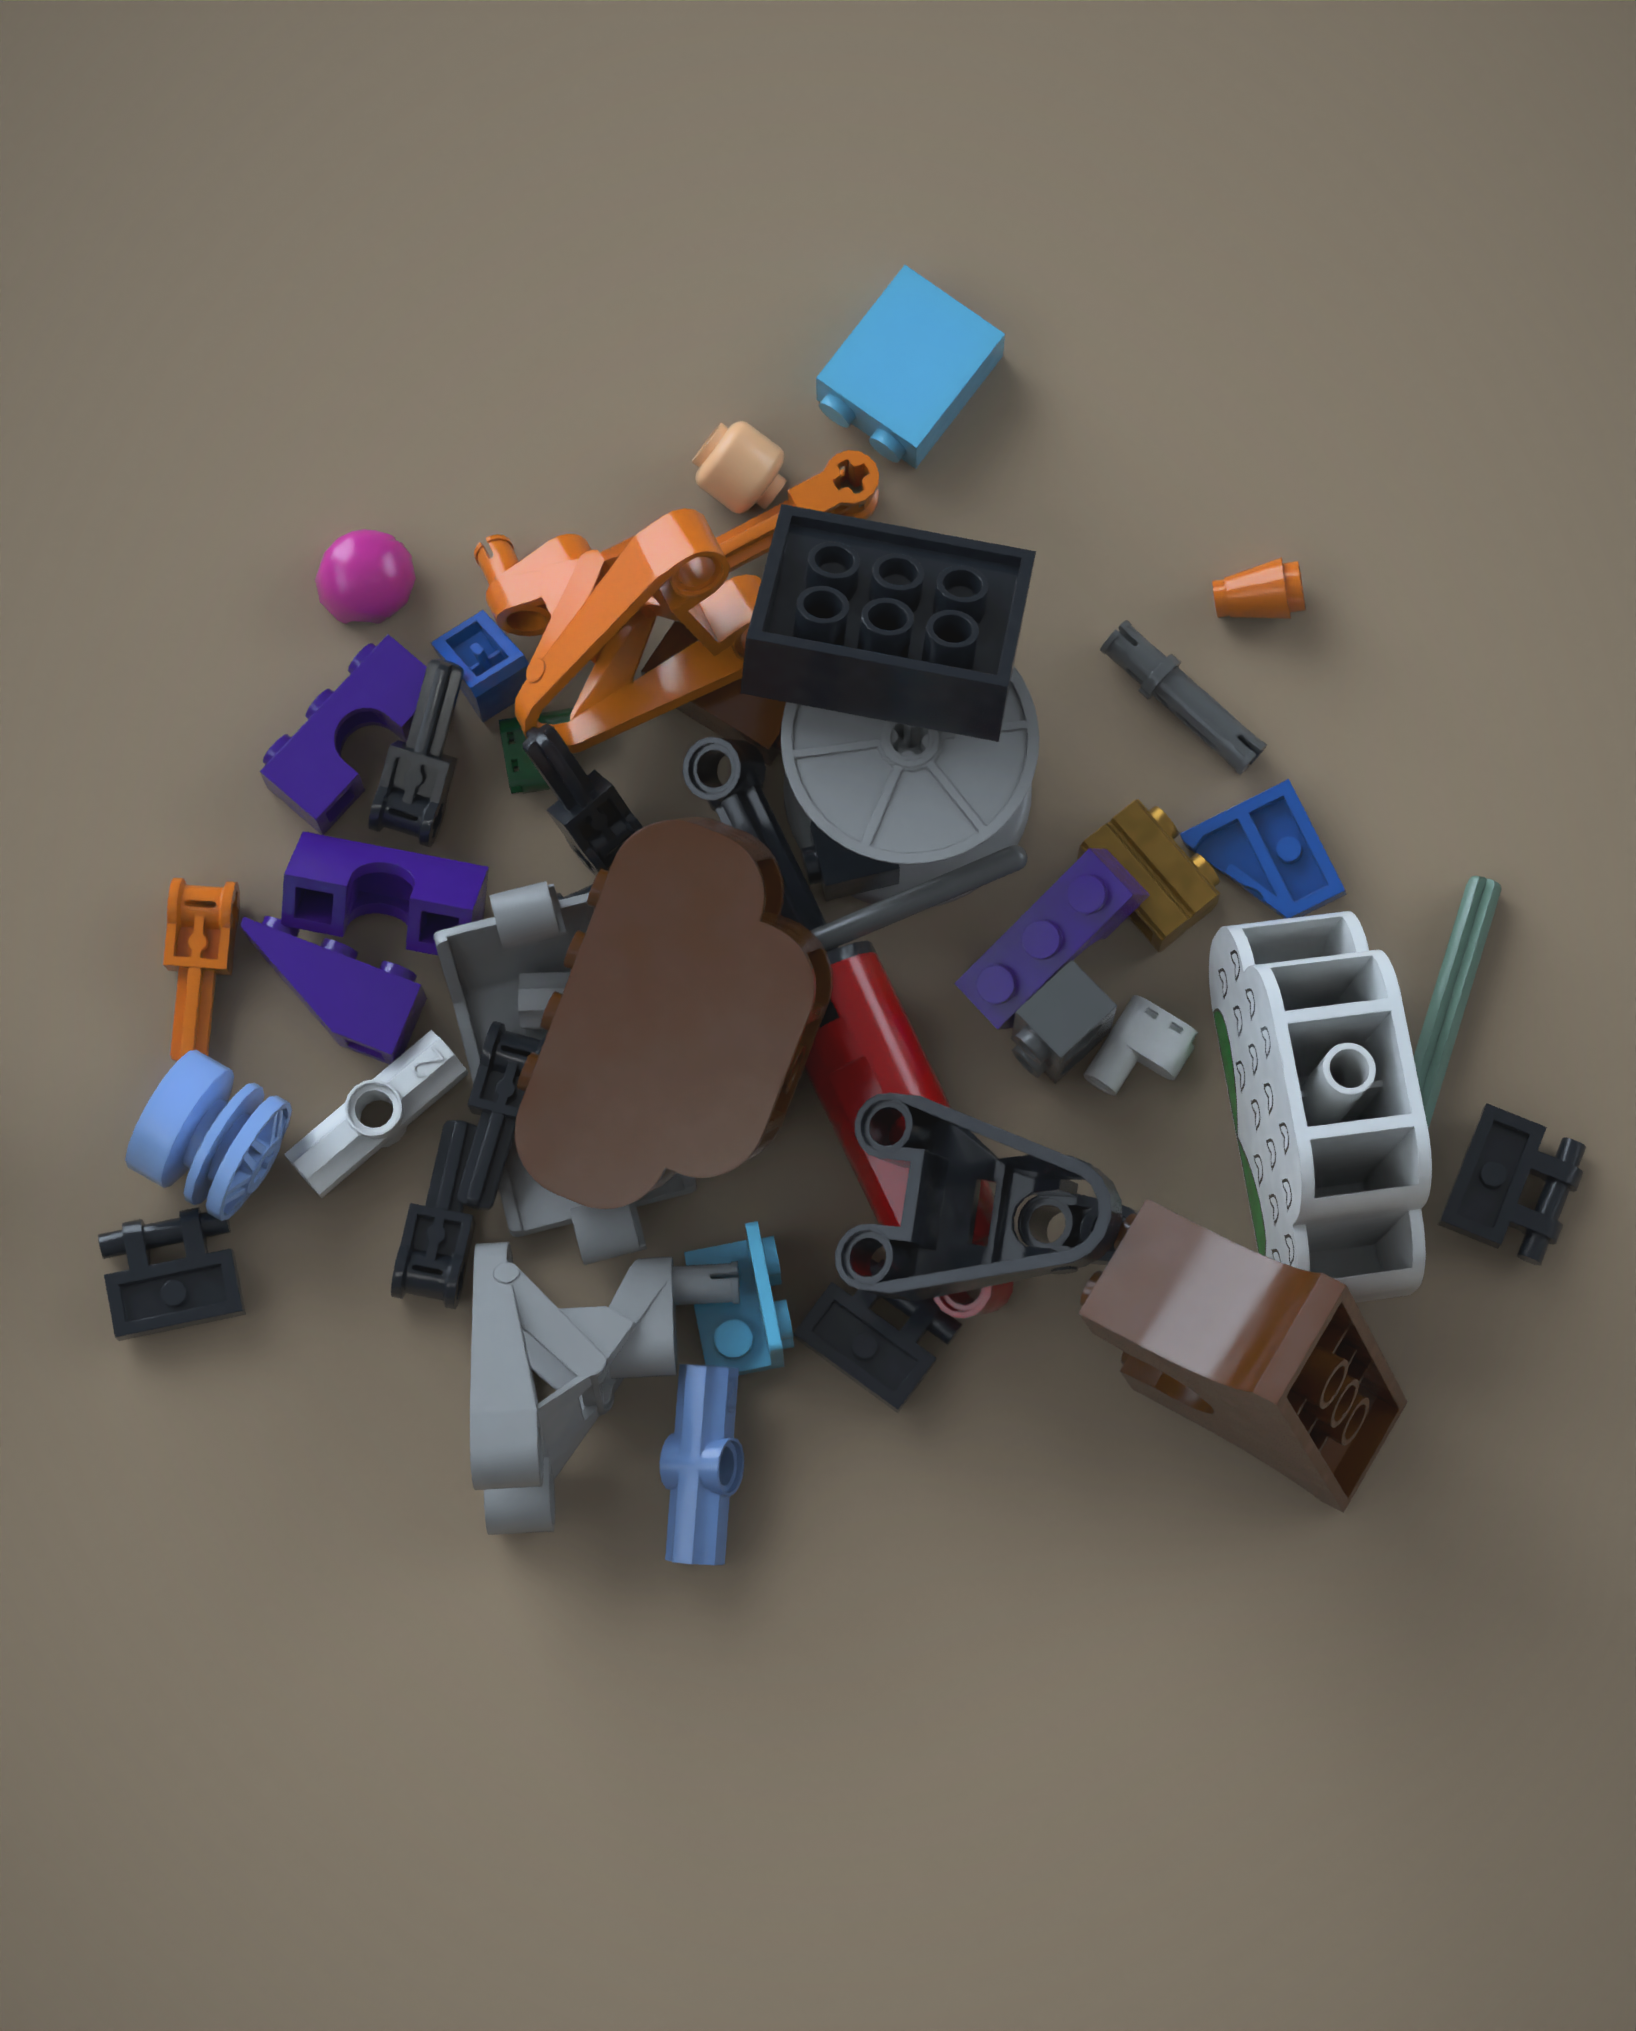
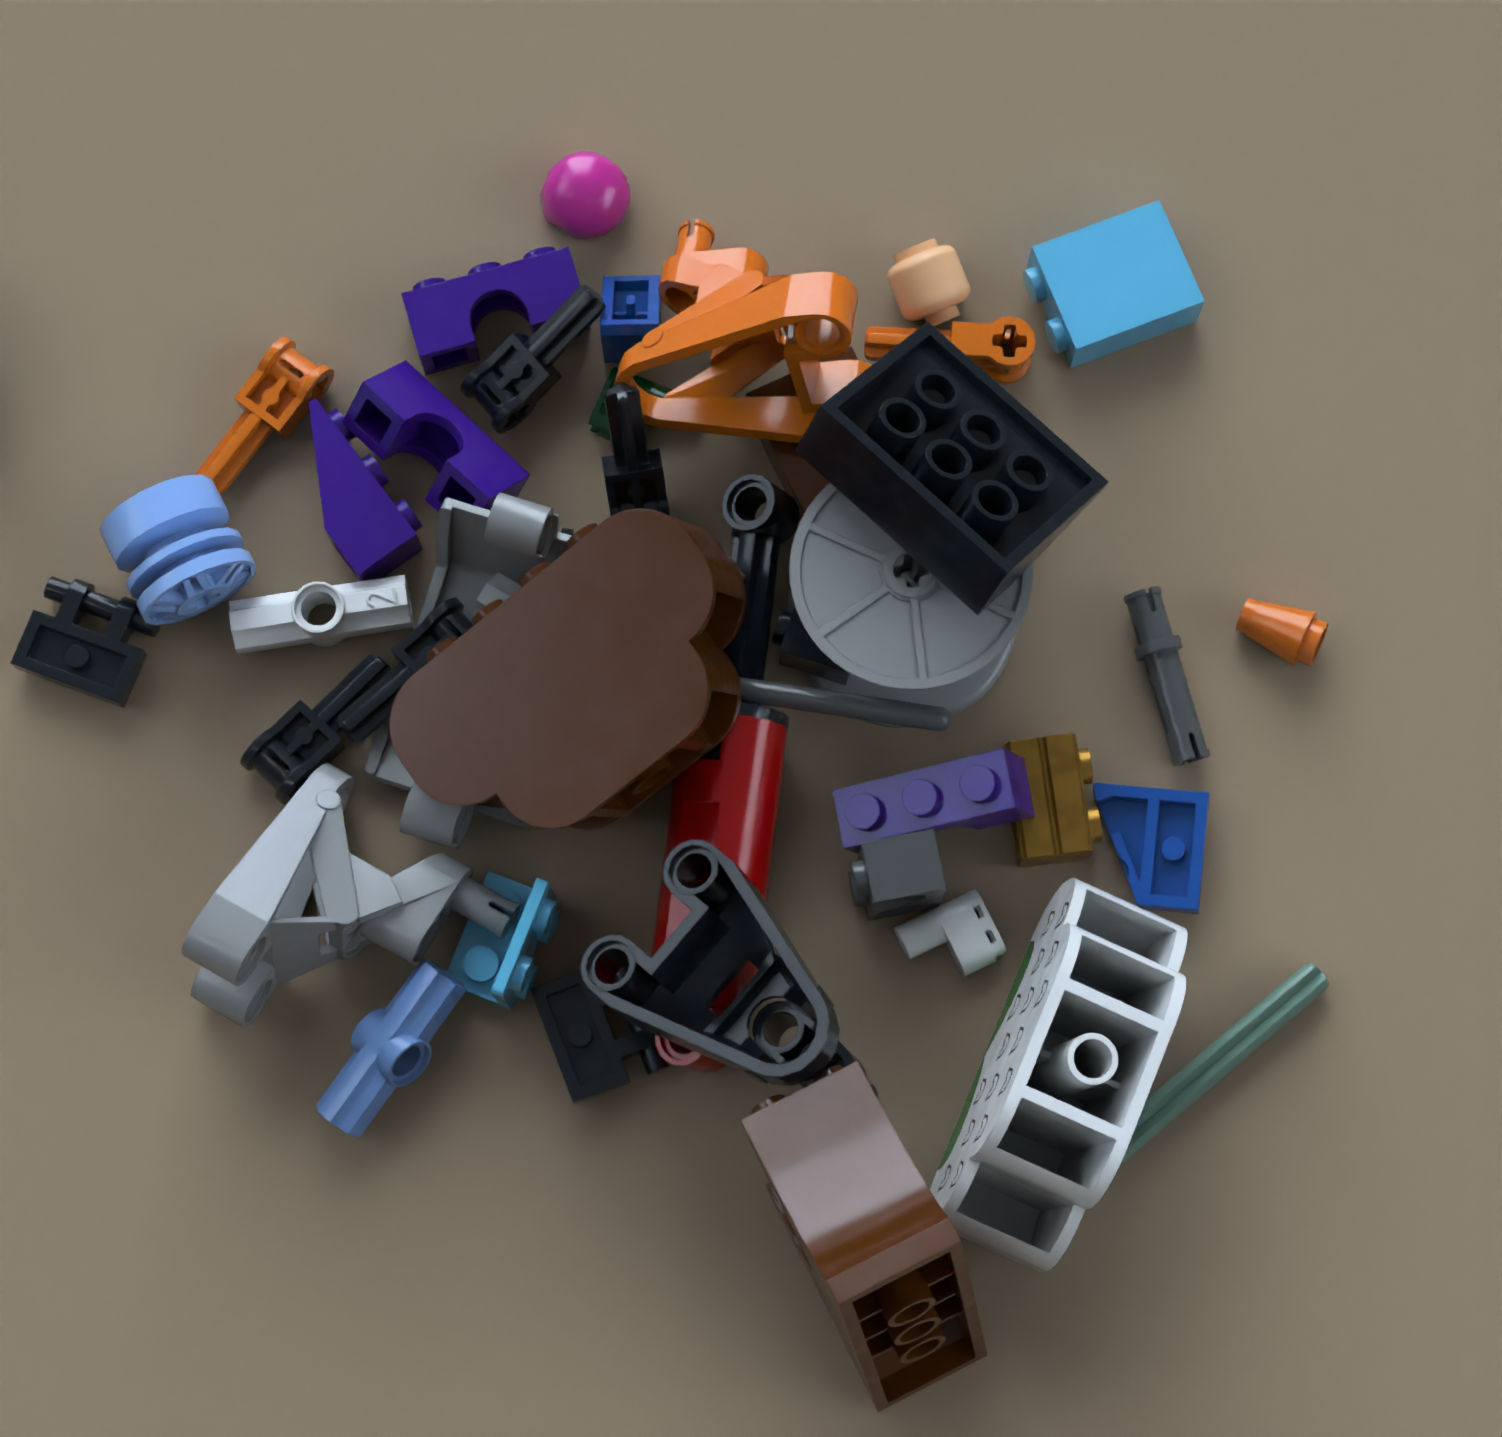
camera: 30 degrees right, 0 degrees up
(1493, 1178) = (1173, 1217): black plate -> none

